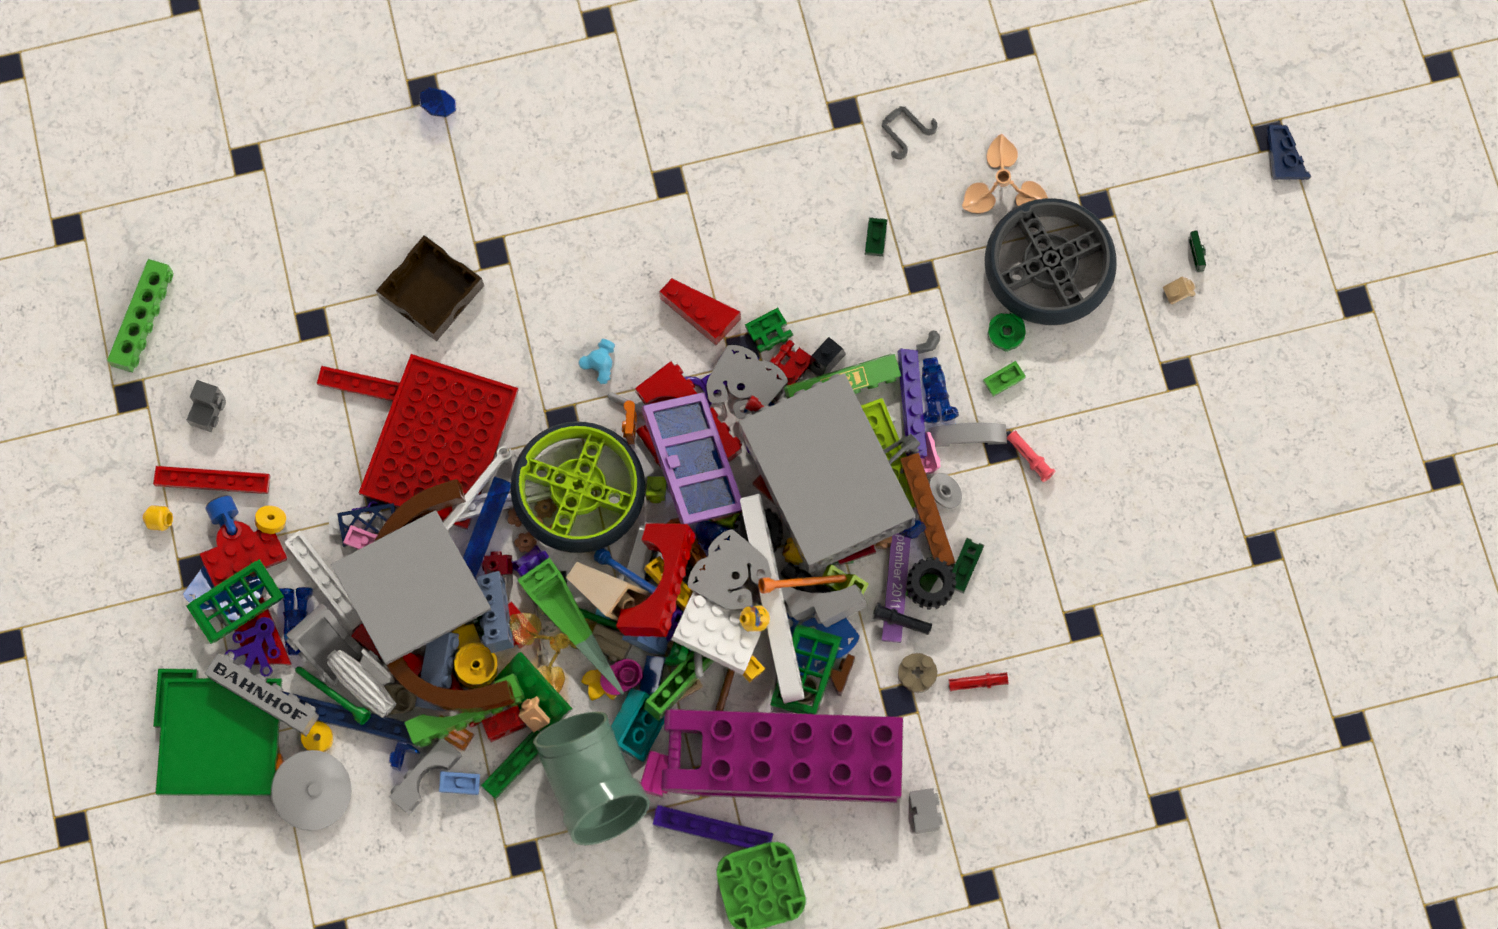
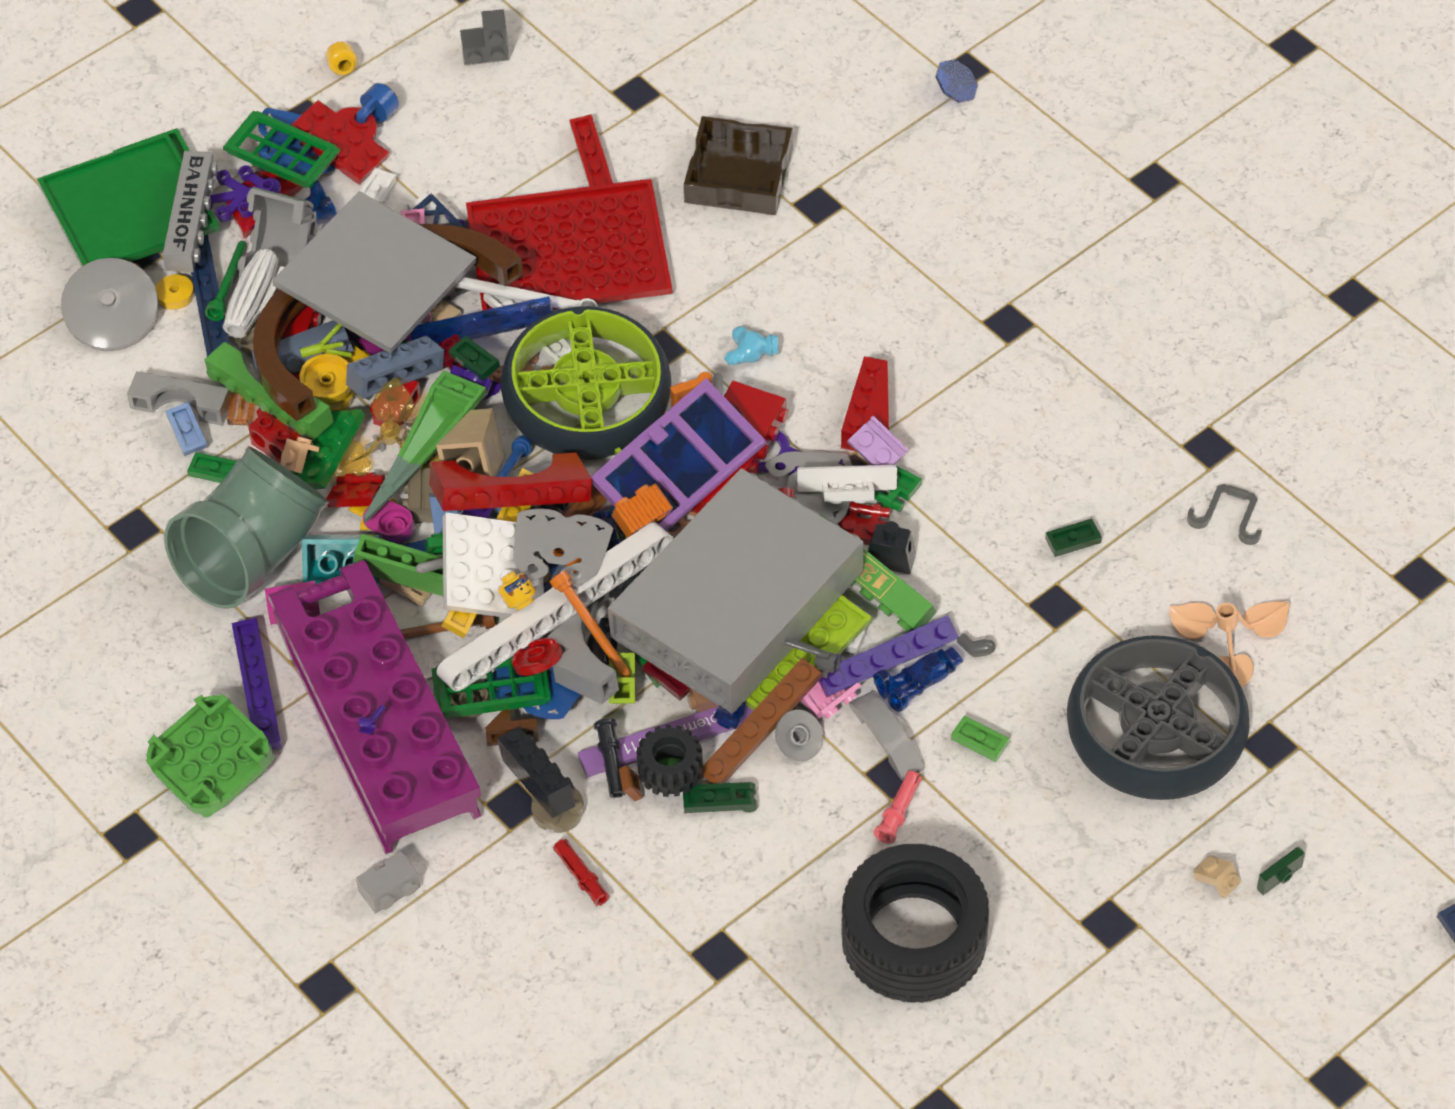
camera: 60 degrees right, 20 degrees down
(211, 479) = (410, 84): red plate -> none
(272, 526) = (393, 146): yellow piece -> none
(397, 757) = (190, 366): clear blue plate -> none
(452, 656) = (328, 348): none -> lime plant
(520, 553) = (474, 358): none -> dark green plate
(586, 689) = (355, 490): none -> red plate
(727, 503) = (644, 508): none -> orange brick
(742, 321) = (877, 444): none -> lavender plate
(763, 358) = (847, 482): none -> white bracket
(808, 630) = (538, 657): none -> red tile
(823, 768) = (368, 725): none -> dark purple hand
(892, 674) = (536, 771): none -> black brick
(926, 616) = (631, 783): none -> dark orange tile
(1006, 321) = (1039, 729): green plate -> none
(1147, 454) = (914, 873): none -> black tyre

